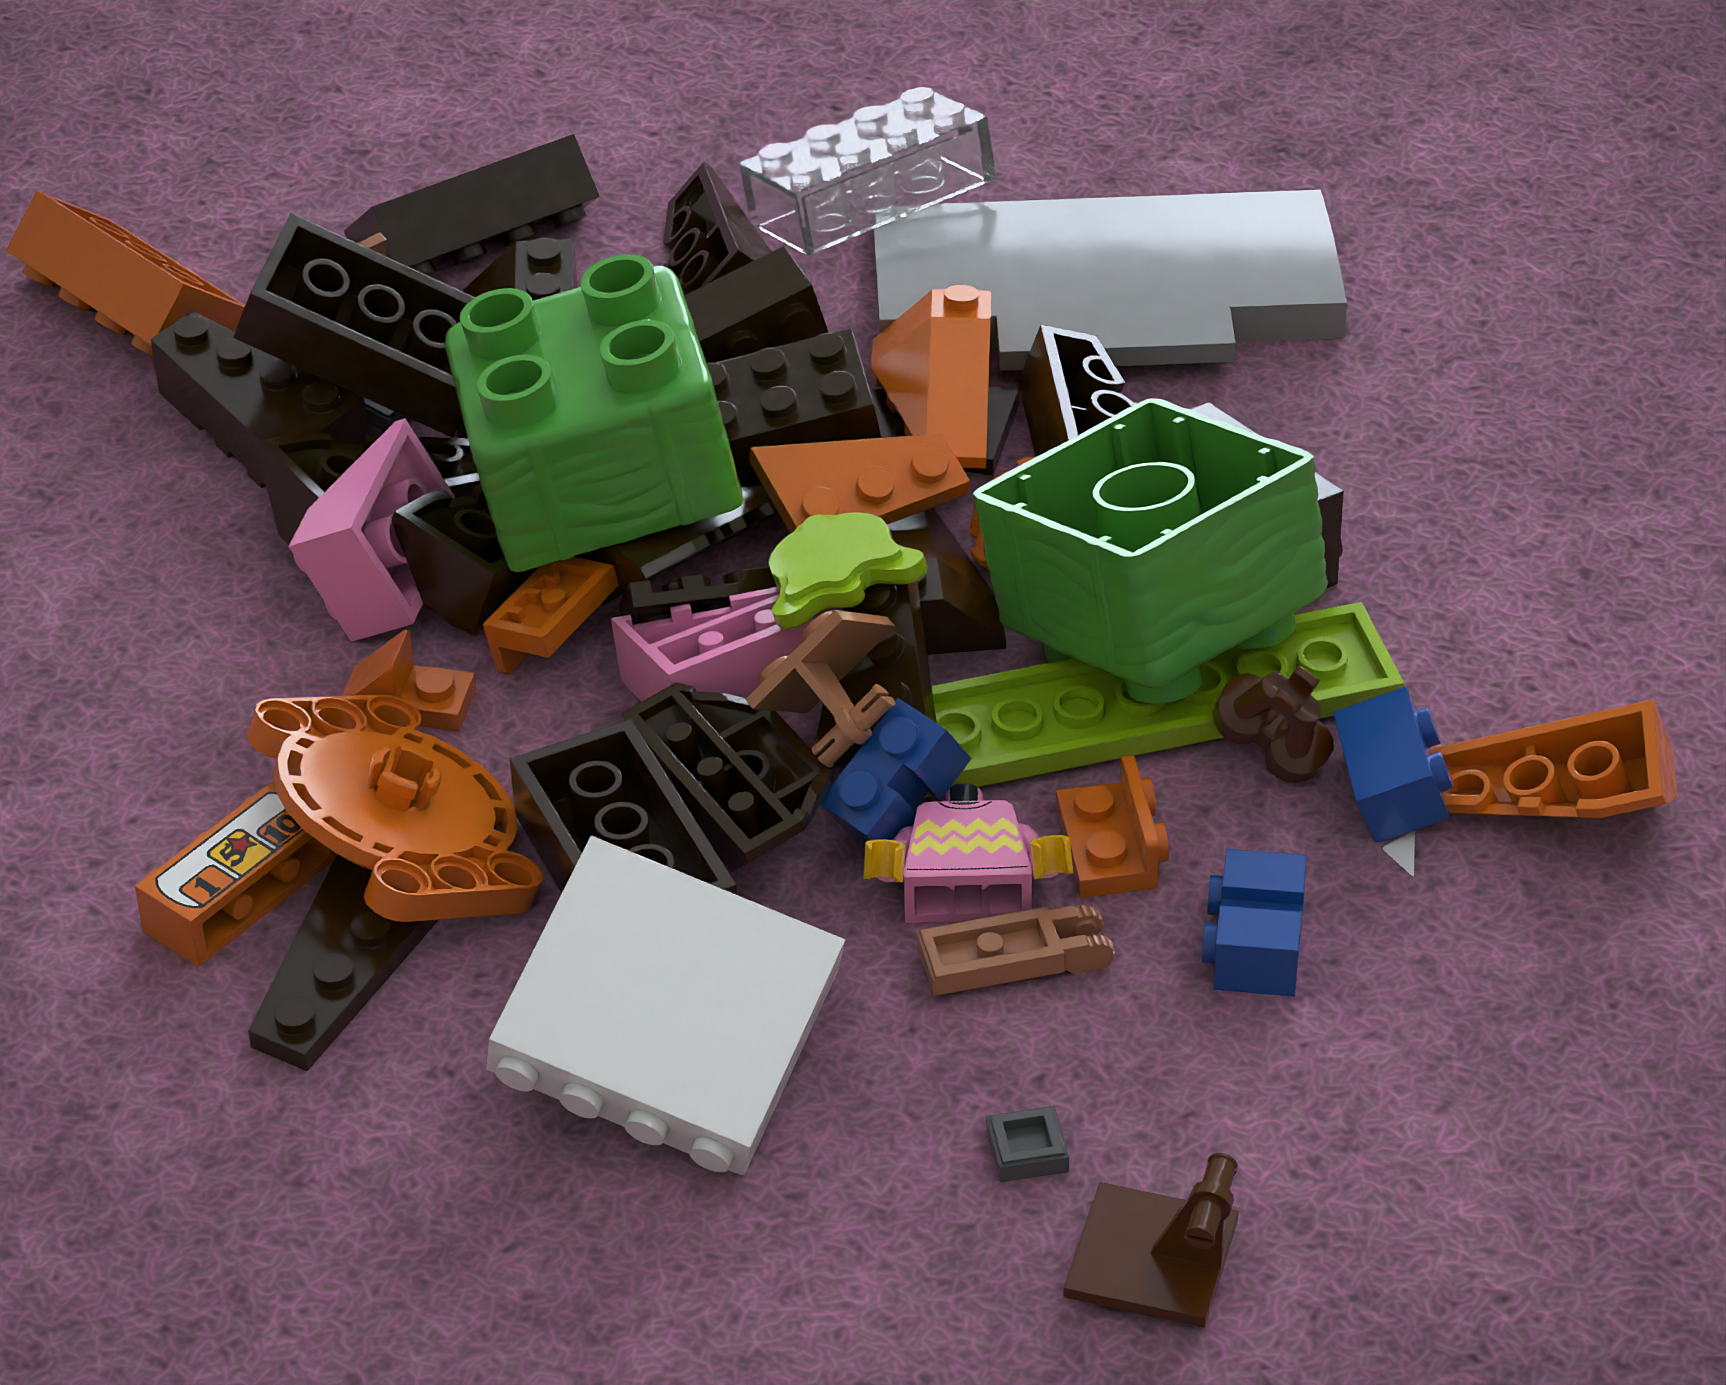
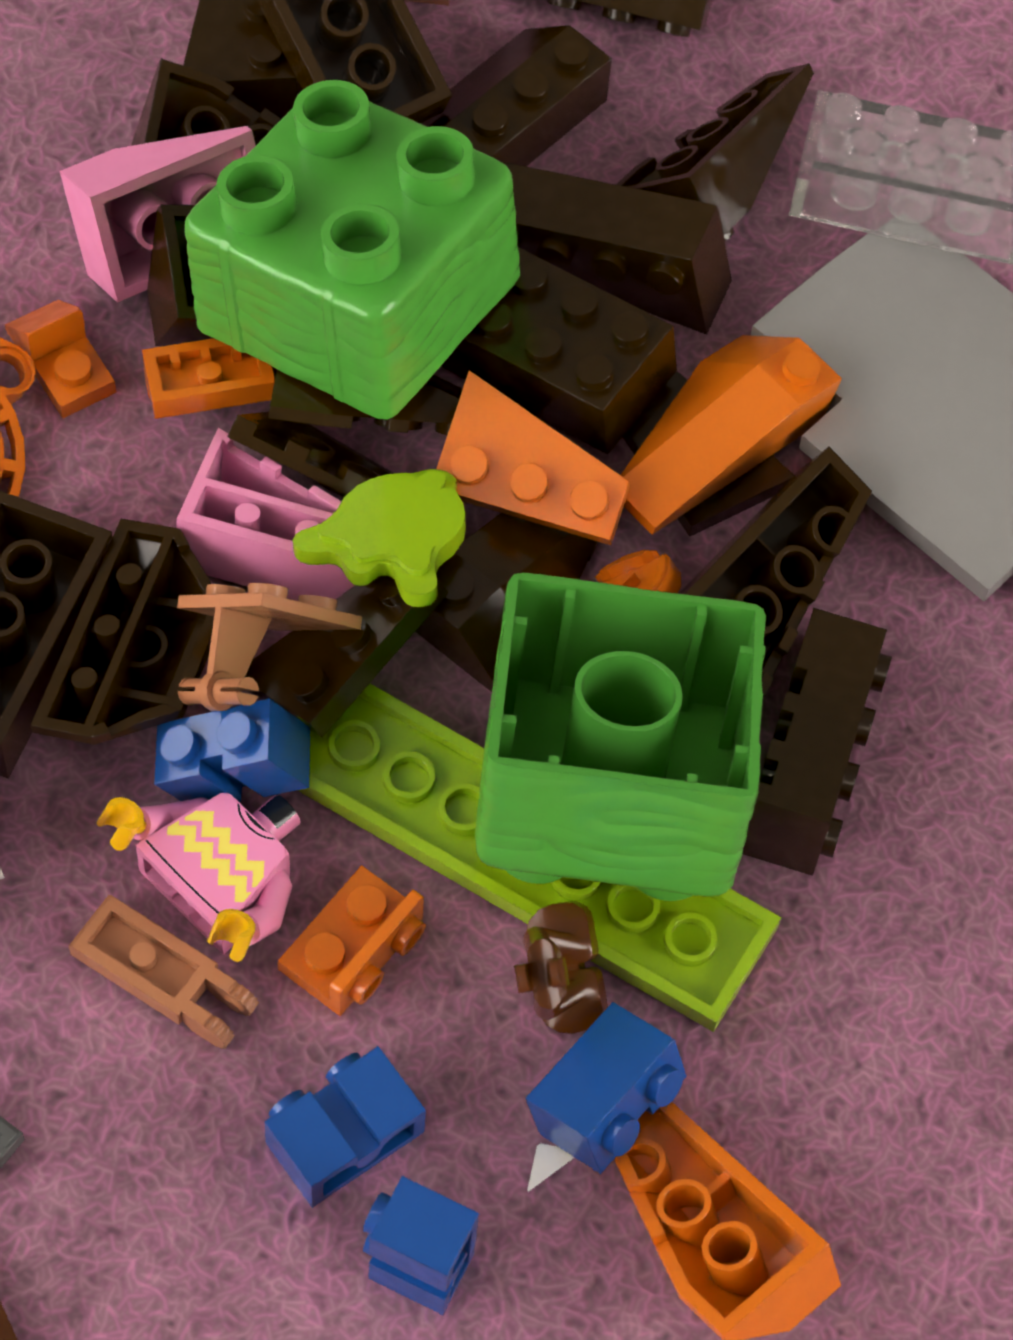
camera: 40 degrees right, 20 degrees up
(1411, 920) = (420, 1243): none -> blue brick

